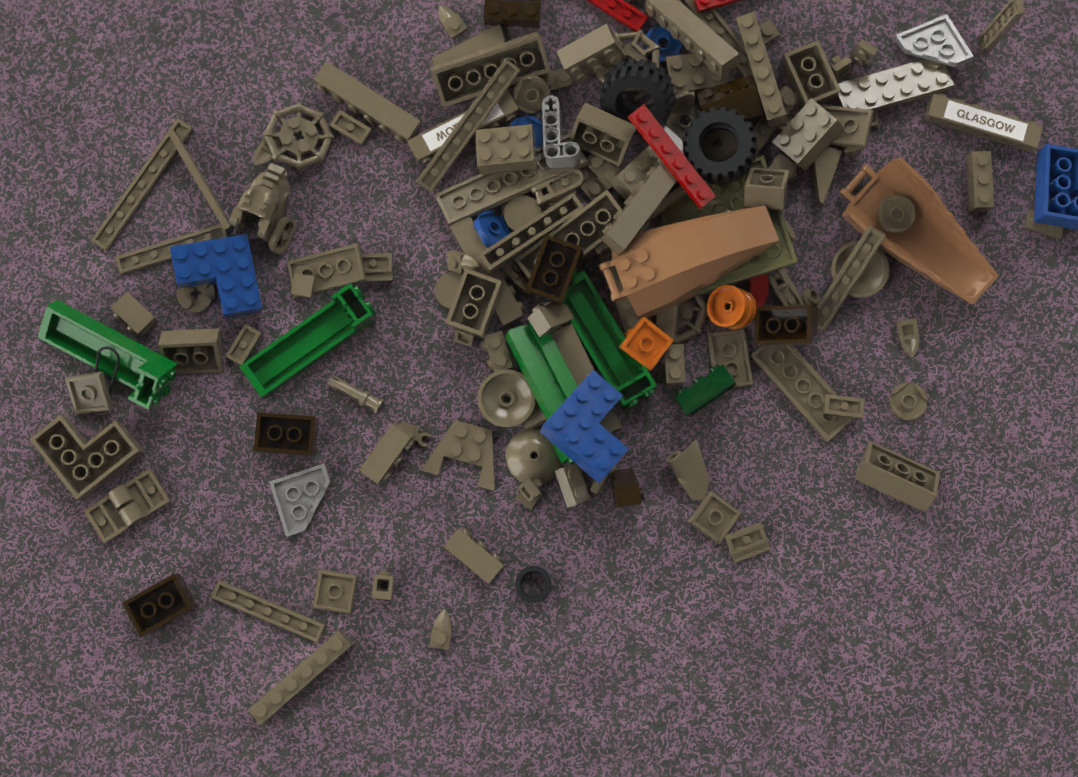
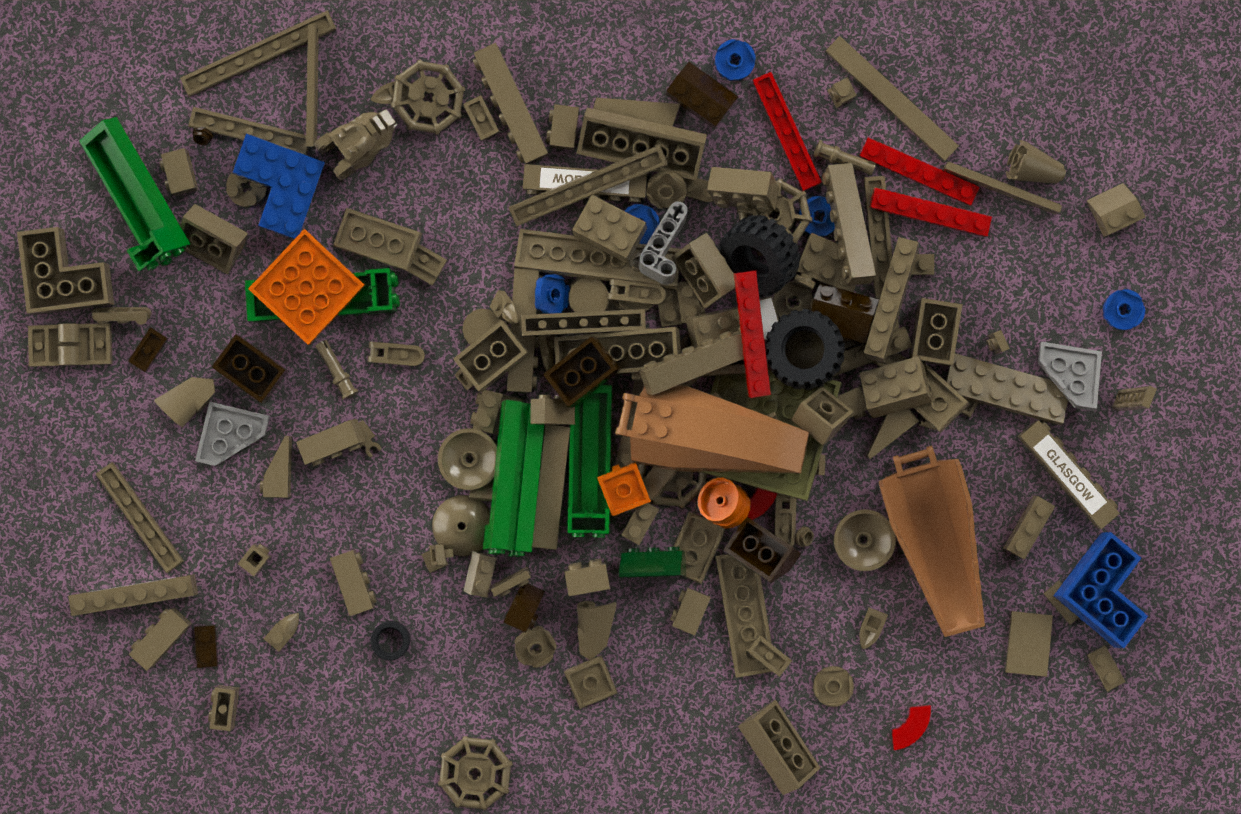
camera: 30 degrees right, 5 degrees up
(89, 393) = (95, 220): dark tan tile -> none
(116, 368) = (110, 208): black piece -> none
(135, 274) = (202, 136): none -> dark brown plate
(155, 456) = (121, 314): none -> dark tan plate
(159, 605) = (46, 453): dark brown brick -> none
(194, 470) = (148, 349): none -> dark brown plate
(244, 344) = (259, 261): dark tan plate -> none
(249, 490) = (186, 399): none -> dark tan panel
(282, 235) = (357, 181): dark tan plate -> none
(292, 340) = (306, 287): none -> orange plate
(303, 285) = (348, 240): dark tan piece -> none
(335, 591) = (209, 536): dark tan tile -> none
(344, 699) = (159, 638): none -> dark tan brick
(360, 506) = (278, 475): none -> dark tan slope
(386, 682) = (206, 646): none -> dark brown plate
(396, 352) = (396, 354): none -> dark tan plate
(420, 95) = (564, 127): none -> dark tan brick
(431, 723) = (224, 707): none -> dark tan brick
(451, 22) = (636, 73): dark tan plate -> none
(469, 445) = (409, 478): dark tan wing -> none
(577, 429) = (510, 530): blue brick -> none
(643, 516) = (535, 636): none -> dark tan plate
(665, 428) = (587, 578): none -> dark tan brick
(679, 653) = (465, 780): none -> dark tan plate
(747, 542) = (605, 722): dark tan plate -> none
(758, 410) = (690, 610): none -> dark tan brick
(841, 67) = (969, 341): dark tan tile -> none
(848, 275) = (847, 541): dark tan tile -> none
(896, 214) = (931, 510): dark tan tile -> none
(991, 395) = (912, 728): none -> red tile
(1038, 273) = (1028, 643): none -> dark tan tile

